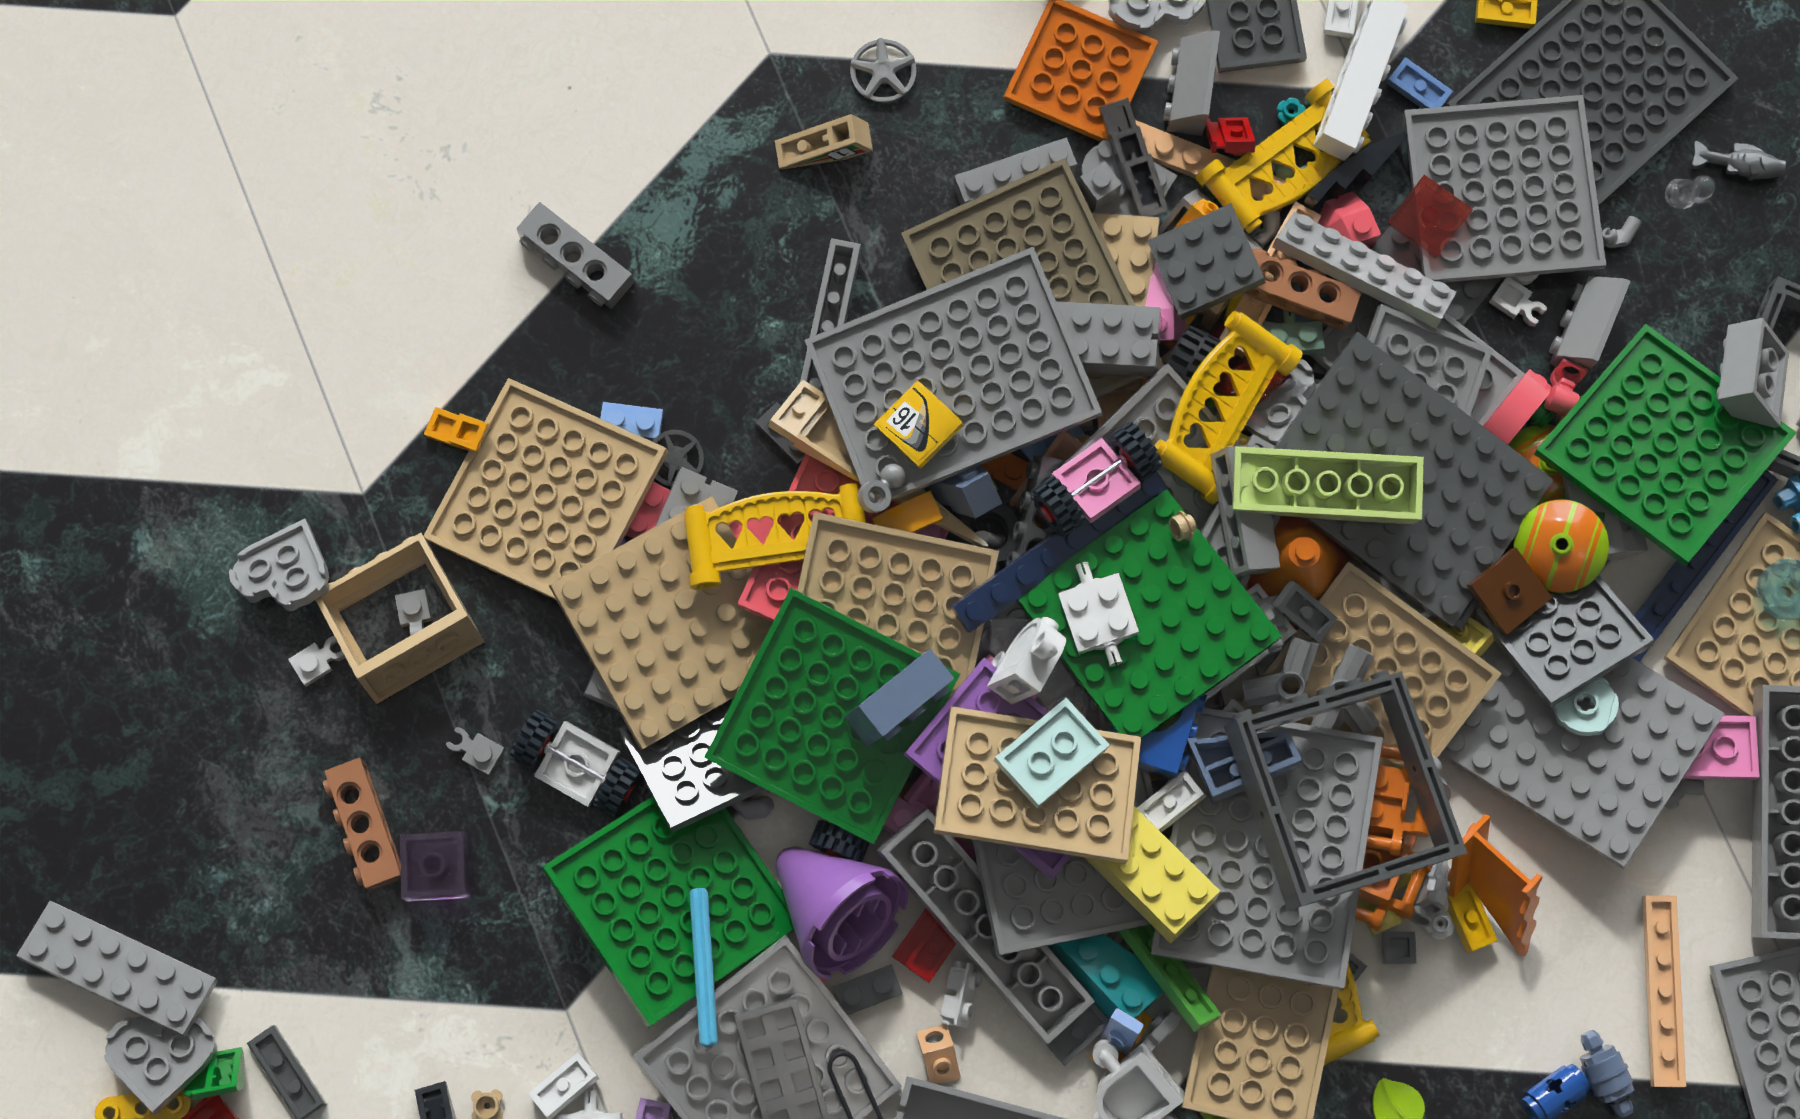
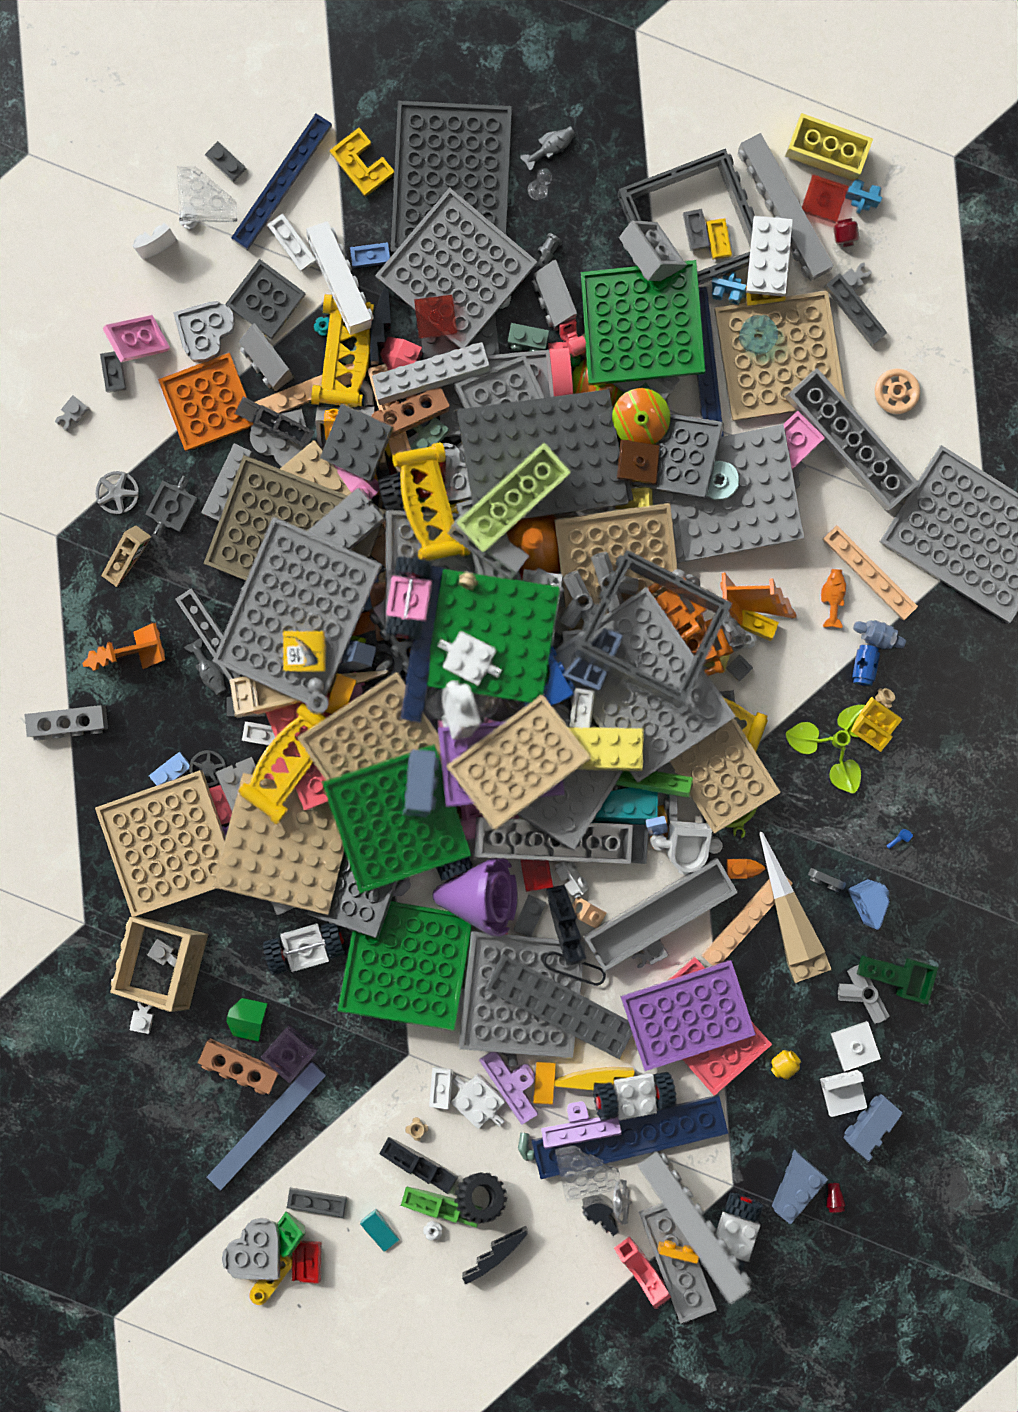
camera: 50 degrees left, 10 degrees up
(117, 968) = (197, 1234): light grey plate -> none
(284, 567) = (85, 993): light grey plate -> none
(323, 924) = (266, 1125): none -> sand blue tile
(428, 781) = (247, 1019): none -> green slope
(456, 430) = (96, 854): light orange slope -> none
(480, 752) = (256, 984): light grey plate -> none
(703, 967) = (451, 981): medium azure axle -> none
(747, 260) = (147, 644): none -> orange piece
(769, 473) = (258, 733): none -> white plate
(786, 357) = (210, 672): none -> dark grey animal
(897, 1043) = (565, 925): none -> black slope
(927, 141) = (171, 506): none -> dark grey plate
(1051, 753) = (511, 743): light aqua plate -> none
(1099, 186) = (272, 451): light grey brick -> none
(1230, 134) = (307, 366): red plate -> none
(1304, 611) = (557, 563): dark grey plate -> none
(1511, 338) = (527, 338): none -> sand green brick
(1513, 299) = (510, 315): white plate -> none
(1597, 972) = (834, 592): none -> orange animal
(1621, 237) = (530, 237): light grey arm -> none
(1630, 267) = (546, 252): none -> dark grey piece

